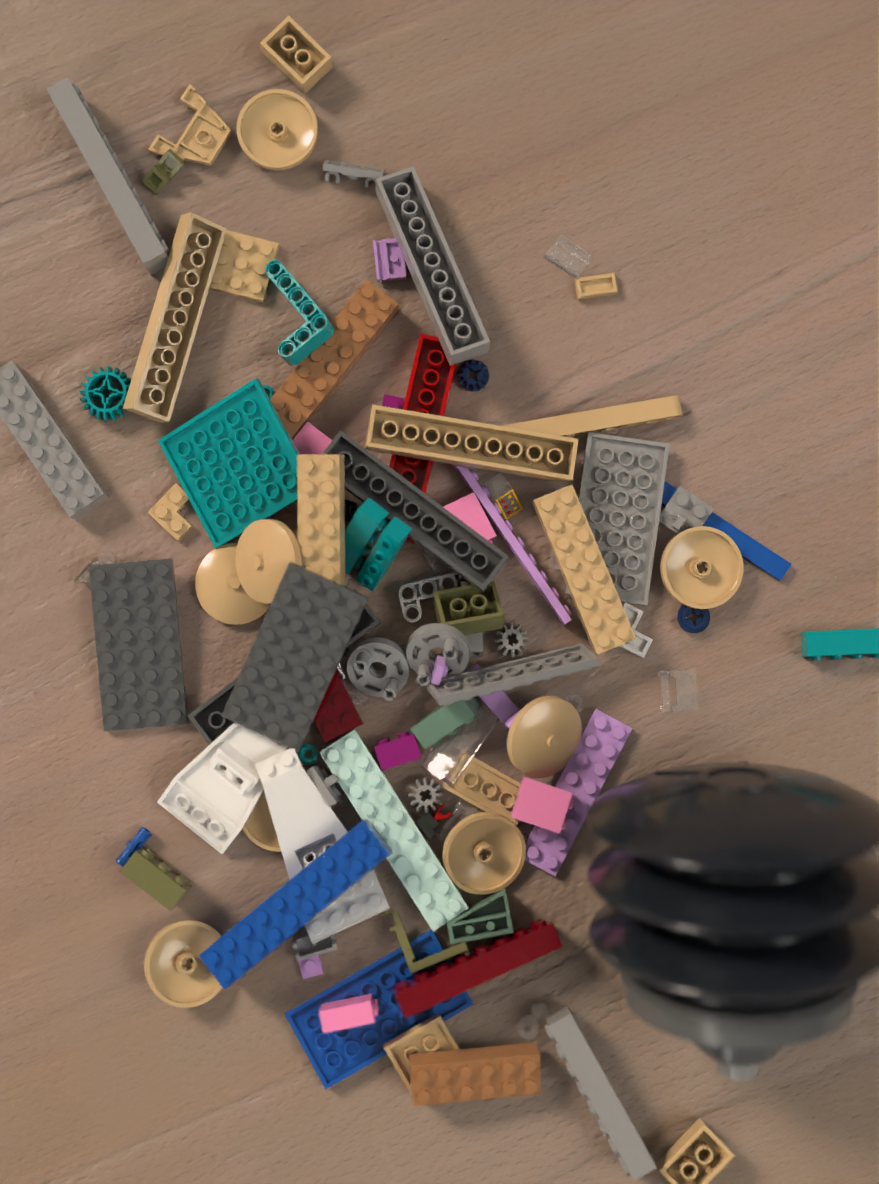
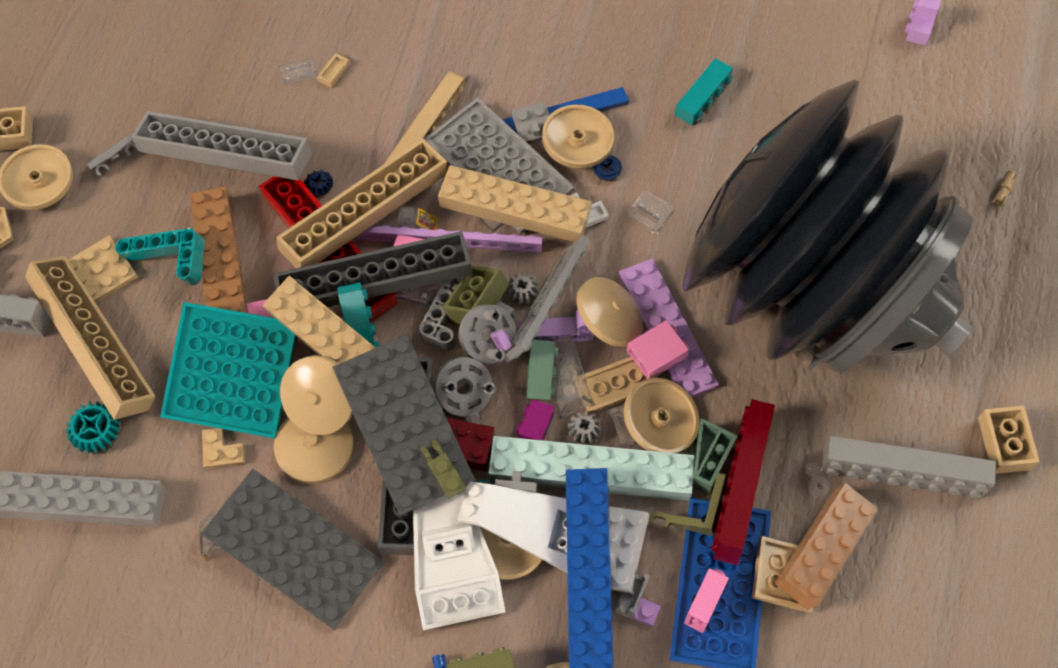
camera: 45 degrees left, 20 degrees down
(281, 724) = (444, 471): none -> olive hinge
(383, 553) = (383, 308): teal brick -> none
(389, 260) = (191, 175): lavender plate -> none
(428, 822) = (607, 438): pearl dark grey piece -> none

